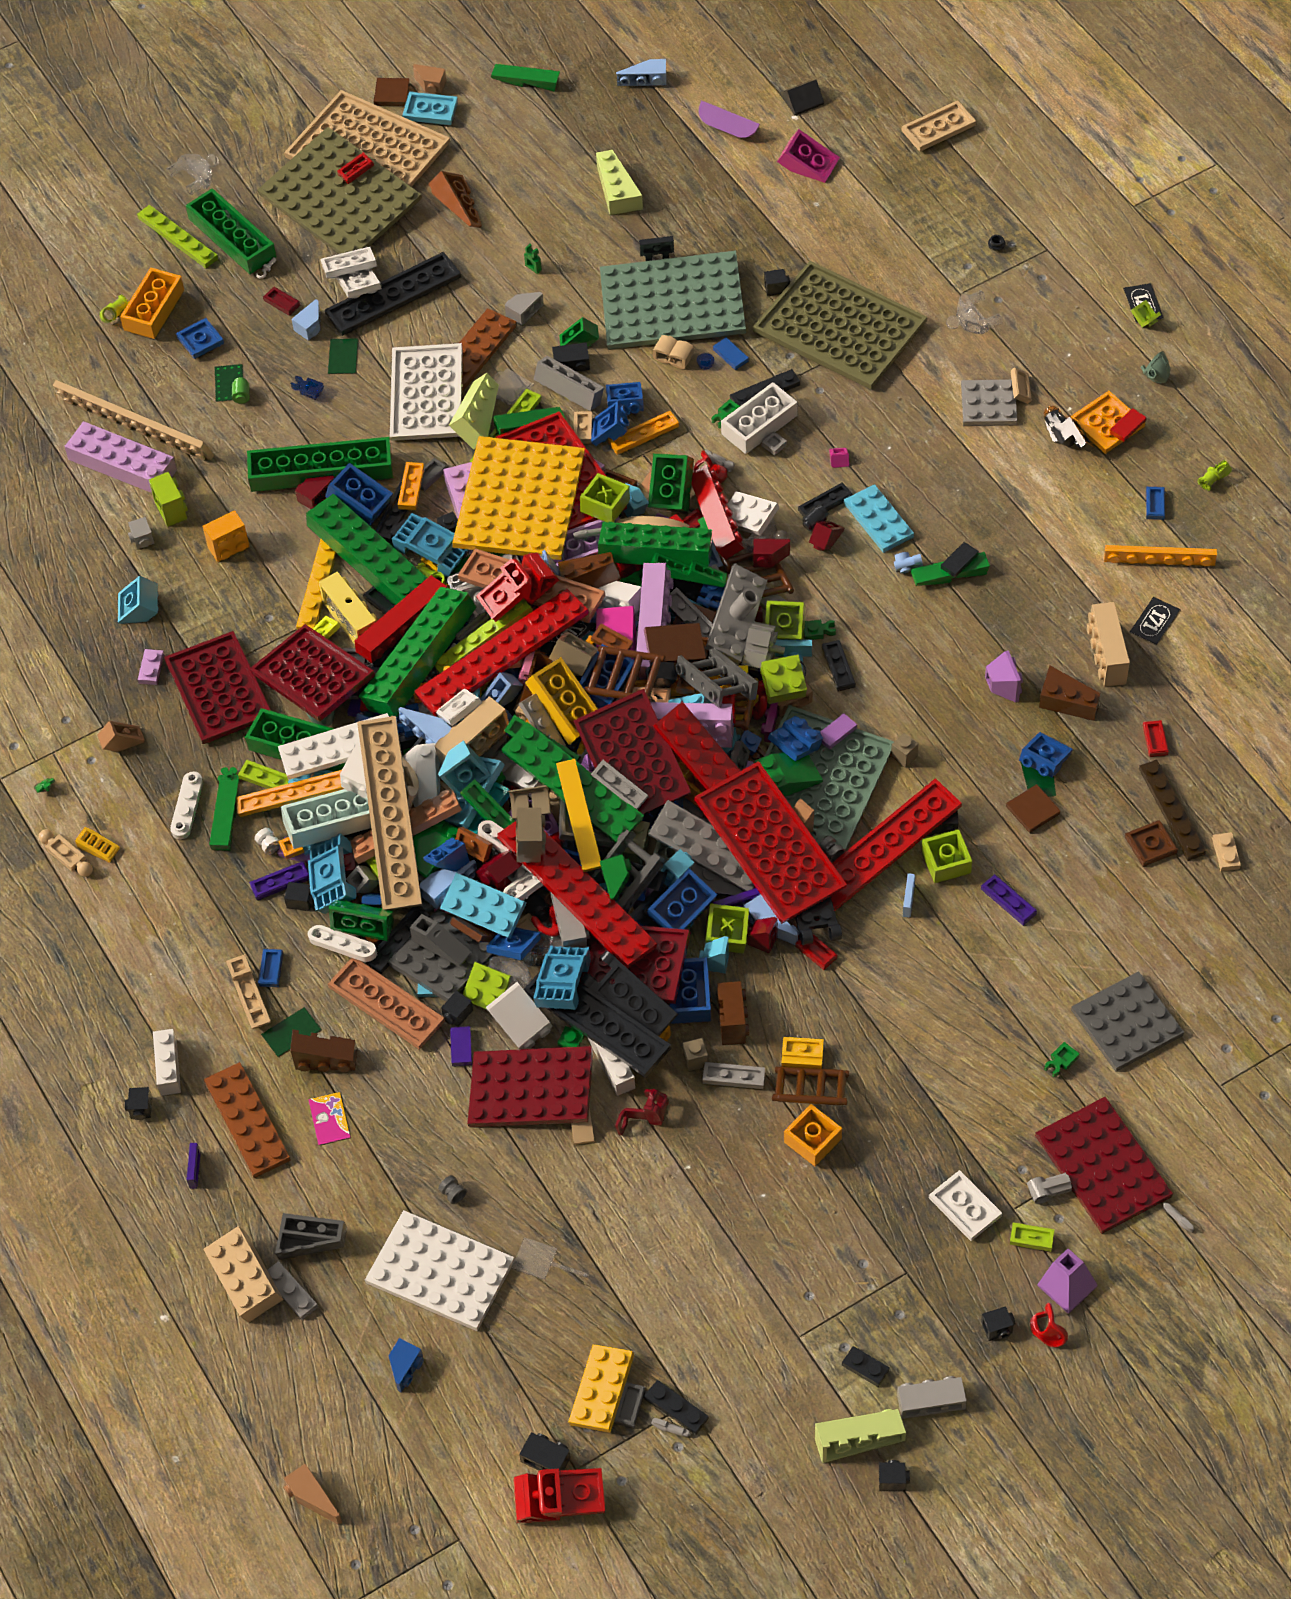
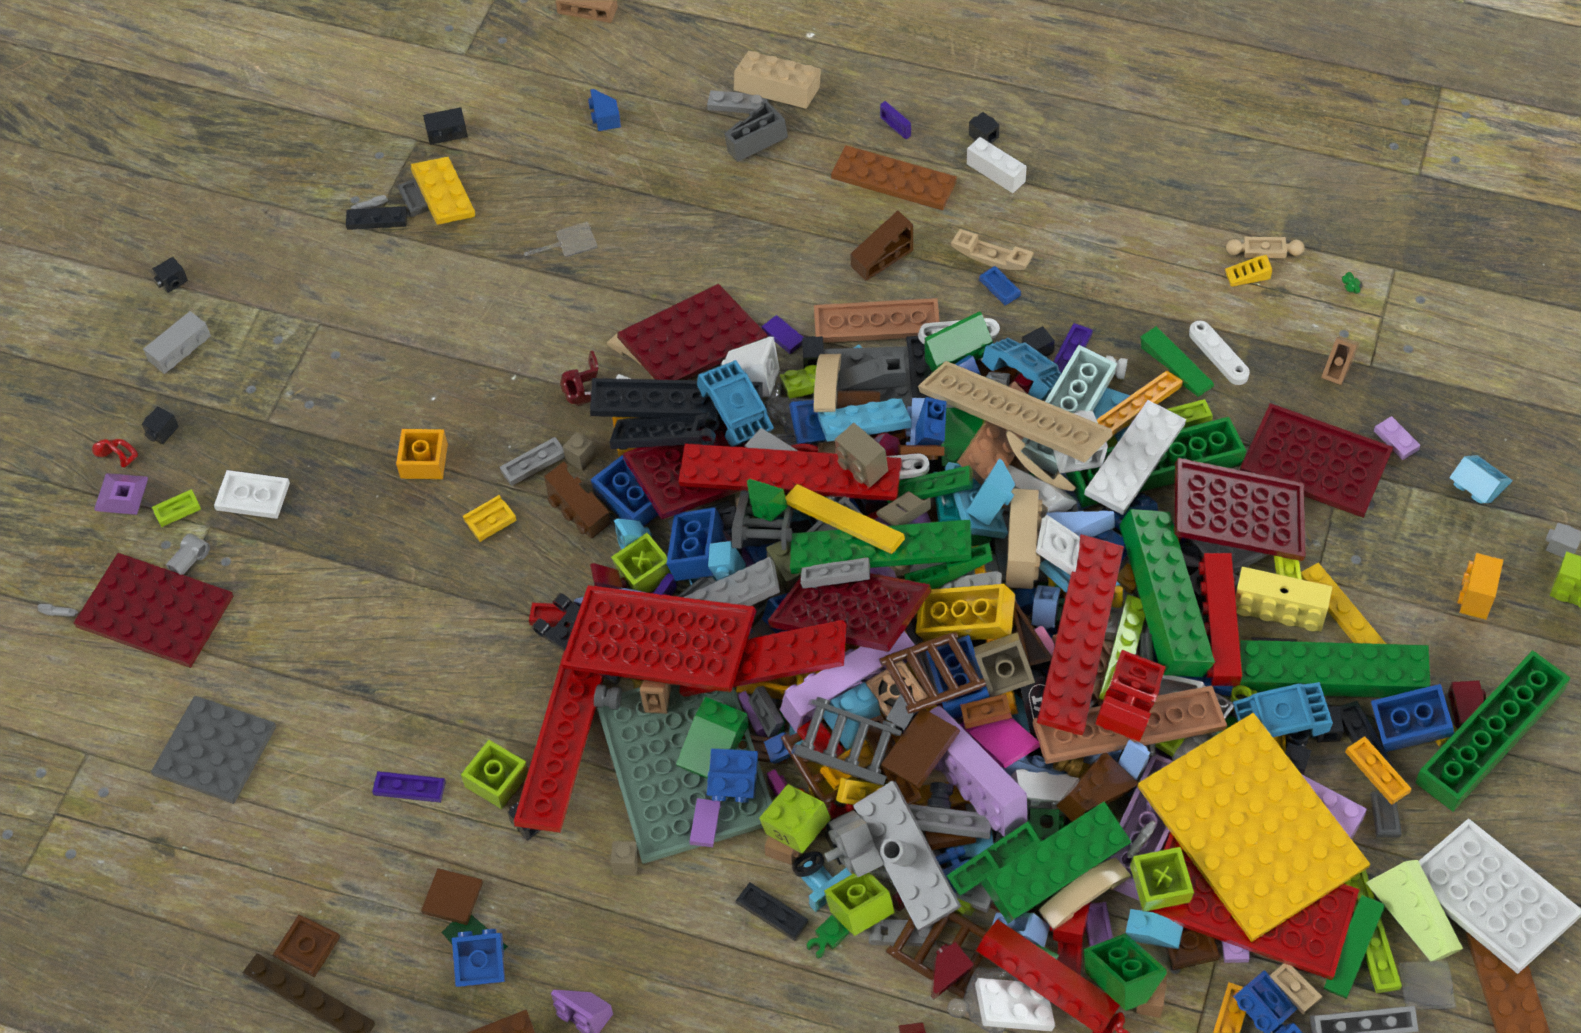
camera: 140 degrees right, 0 degrees up
(228, 774) = (1215, 399): green plant -> none
(280, 1035) = (931, 257): dark green sticker -> none
(329, 1118) = (833, 222): sticker -> none
(440, 1270) = (639, 184): white plate -> none
(452, 1189) = (682, 232): dark grey wheel -> none
(476, 953) = (826, 382): none -> tan slope
(558, 1494) = (409, 103): red piece -> none
(801, 1074) = (432, 471): reddish brown bar -> none
(858, 1434) = (217, 278): yellowish green wedge -> none
(865, 1366) = (249, 334): black plate -> none
(909, 892) = (504, 717): light blue tile -> none
(1062, 1057) = (251, 671): green plate -> none
(1226, 851) = (222, 991): tan plate -> none

